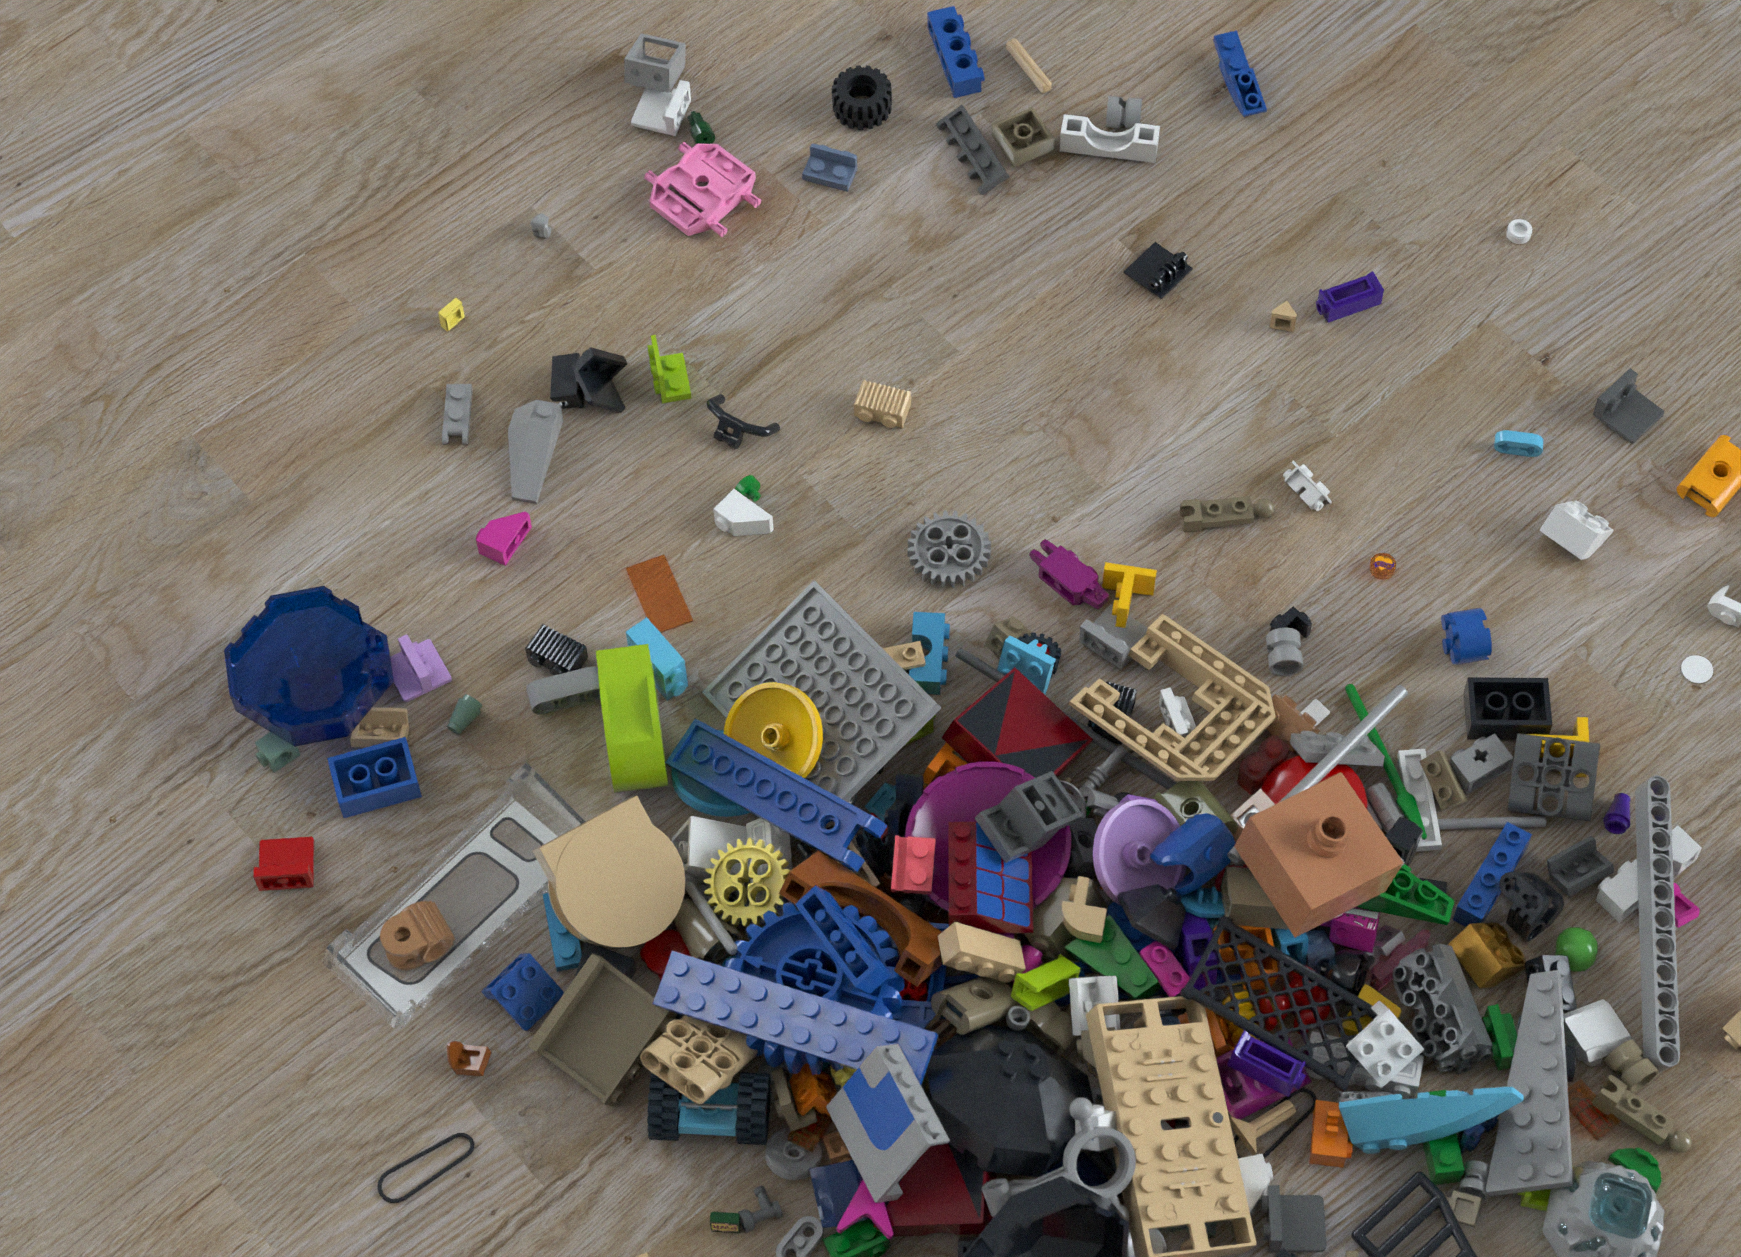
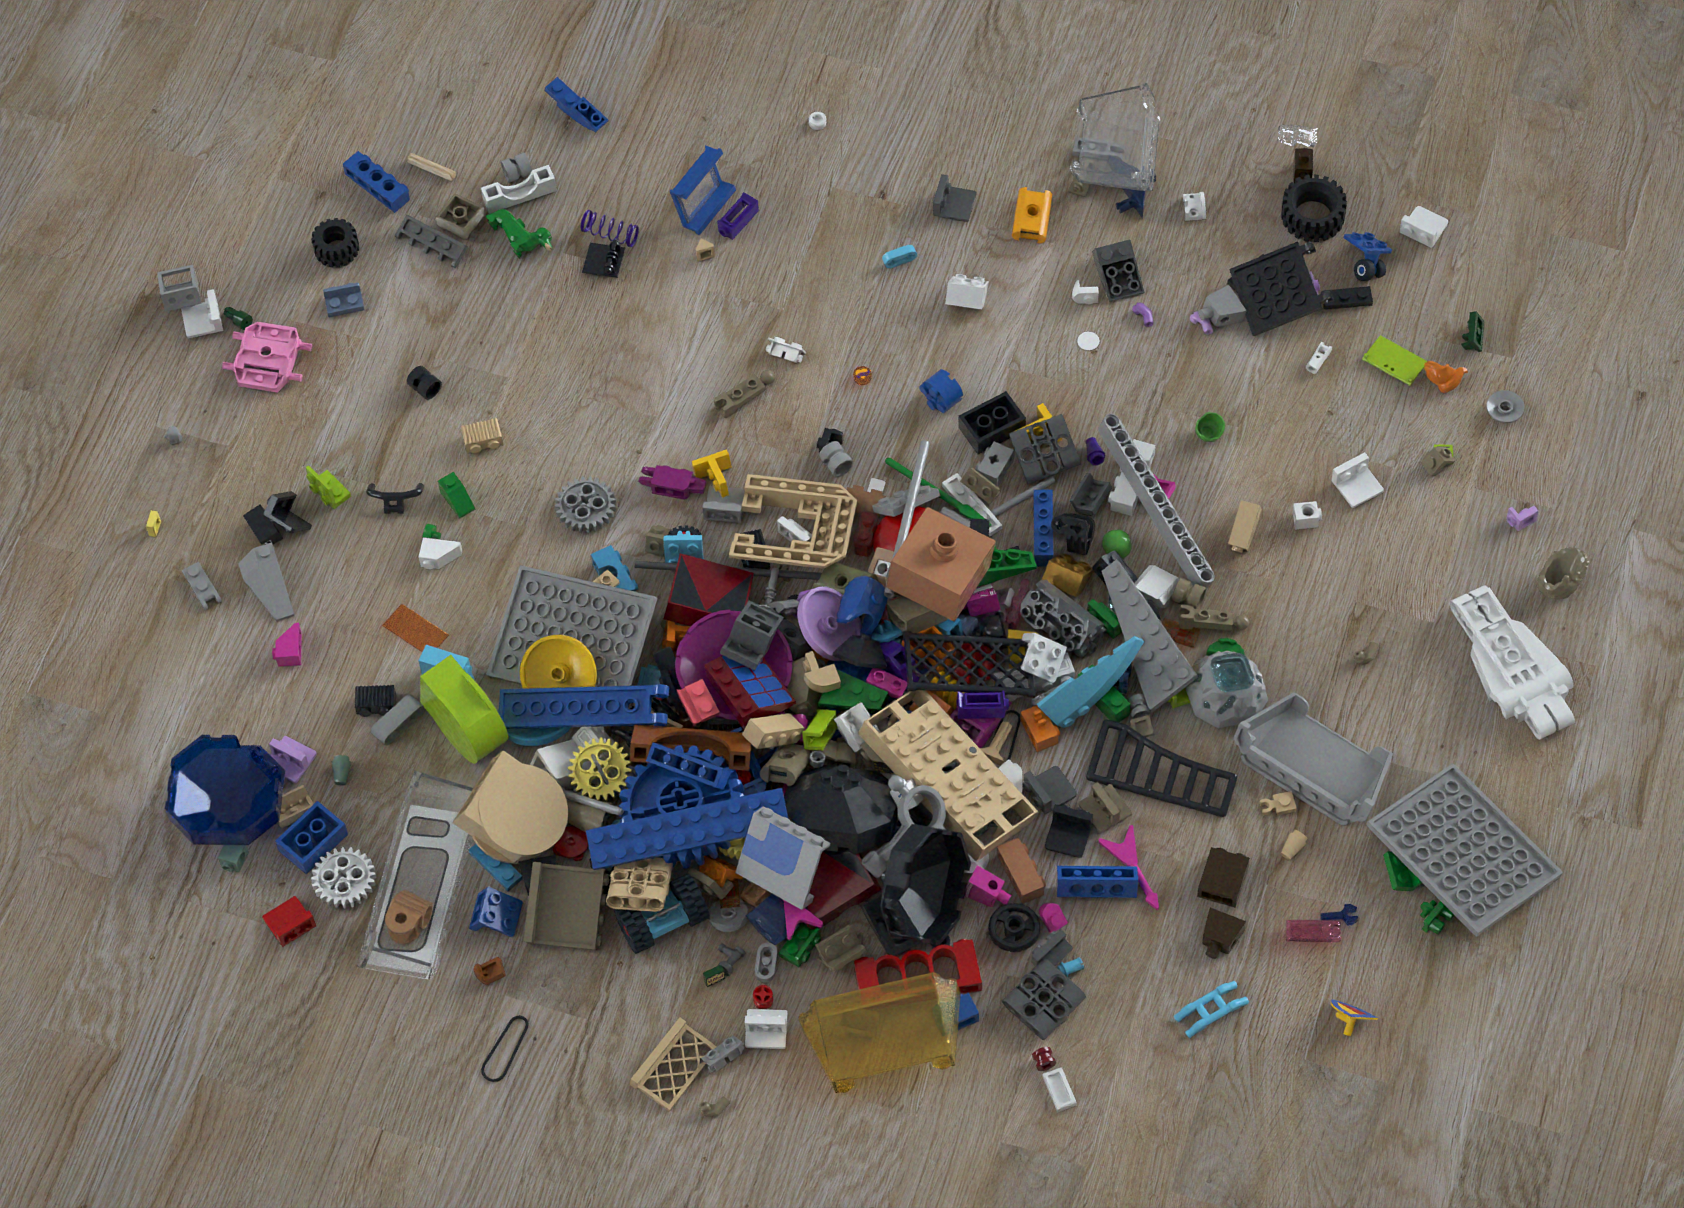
camera: 30 degrees left, 0 degrees up
(385, 866) = (343, 877): none -> white gear
(807, 458) = (456, 495): none -> green slope
(856, 308) = (424, 382): none -> black wheel
(1075, 195) = (518, 237): none -> green animal
(1201, 256) = (590, 224): none -> dark purple piece
(1320, 245) = (701, 192): none -> blue piece

